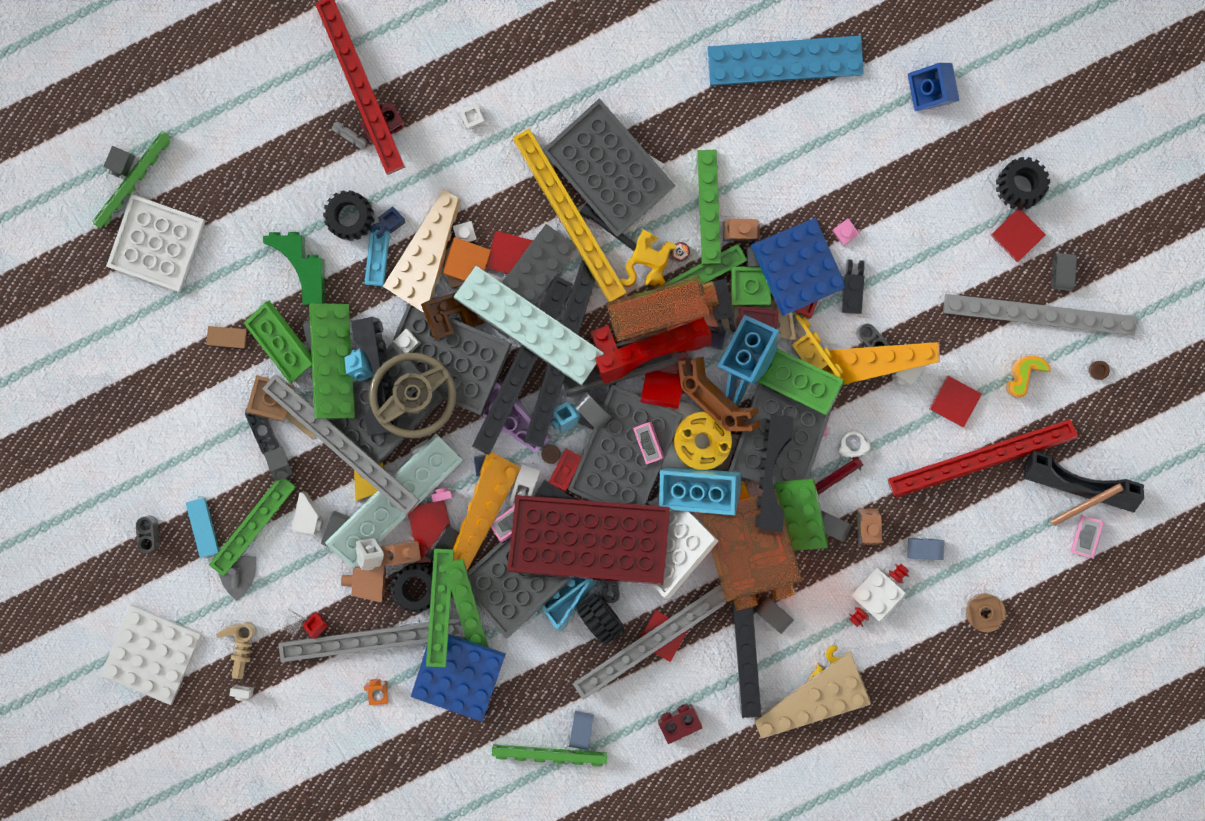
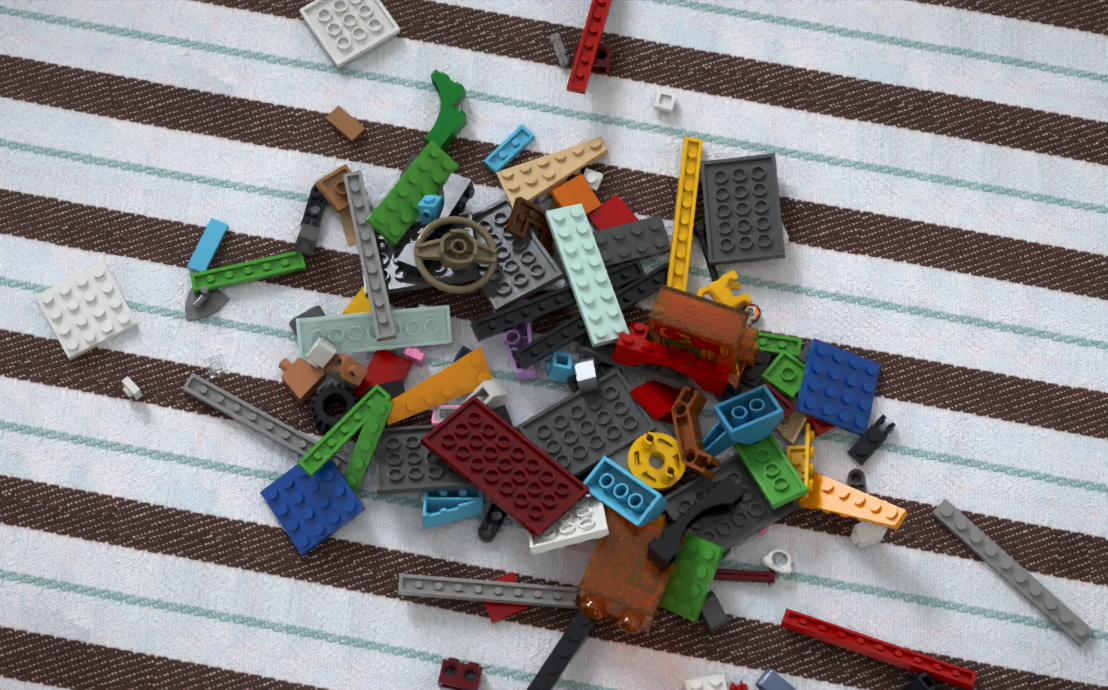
camera: 40 degrees right, 20 degrees down
(151, 534) = (163, 219): dark grey beam -> none
(242, 643) = (159, 357): tan piece -> none
(279, 341) = (383, 153): bright green plate -> none
(306, 516) = (295, 294): white slope -> none
(315, 625) = (232, 381): red plate -> none
(335, 206) = (512, 89): black tyre -> none
(376, 684) = (240, 462): orange bracket -> none
(388, 221) = (539, 129): dark blue plate -> none
(407, 341) = (483, 219): white plate -> none
(540, 754) = (339, 626): bright green plate -> none
(551, 454) = (525, 390): reddish brown tile -> none
(565, 469) = (527, 408): red plate -> none
(581, 730) = (375, 621): sand blue beam -> none
(600, 619) = (463, 538): black tyre -> none
(648, 442) = (612, 429): slope -> none
(709, 207) = (799, 295): bright green plate -> none
(741, 230) = (812, 327): nougat torso -> none
(774, 615) = (607, 647): dark grey beam -> none
(785, 60) = (945, 234): dark azure plate -> none
(845, 232) = (897, 393): bright pink plate -> none
(869, 526) = (741, 634): nougat torso -> none
(933, 86) = (1051, 333): blue slope -> none
(955, 401) = (889, 589): red tile -> none
(1018, 235) = (1039, 496): red tile -> none
(1021, 373) = (965, 601): light orange animal -> none
(1029, 170) = (1064, 467): black tyre -> none
(1063, 271) = (1056, 551): dark grey beam -> none
(1099, 370) = (1031, 653): reddish brown tile -> none

